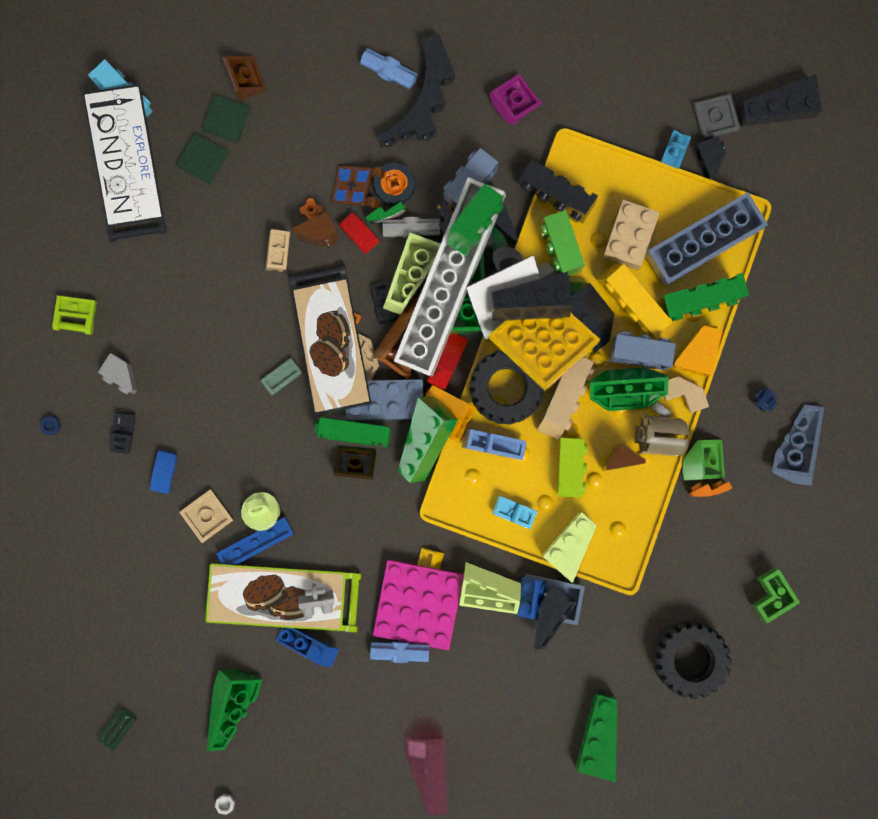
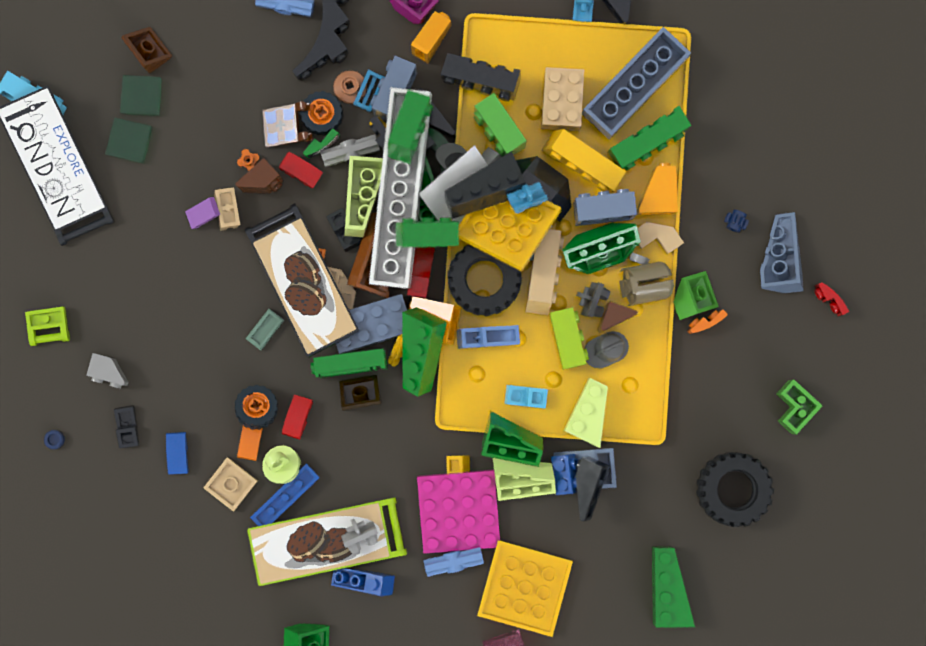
camera: 15 degrees left, 0 degrees up
(238, 478) = (249, 443): none -> orange slope
(251, 449) = (256, 407): none -> black wheel
(253, 248) = (202, 213): none -> medium lavender tile
(288, 469) = (296, 417): none -> red slope
(401, 434) = (396, 352): none -> yellow axle
(432, 174) = (348, 95): none -> nougat piece
(435, 188) = (362, 105): none -> dark azure tile
(461, 697) = (525, 588): none -> yellow plate
(463, 327) = (427, 232): none -> green wedge
(487, 552) = (511, 442): none -> green wedge
(520, 139) = (431, 36): none -> light orange slope
(570, 320) = (527, 197): none -> dark azure hips
(603, 435) = (590, 299): none -> dark grey hips
(605, 489) = (606, 349): none -> dark grey piece
(832, 494) = (825, 293): none -> red slope

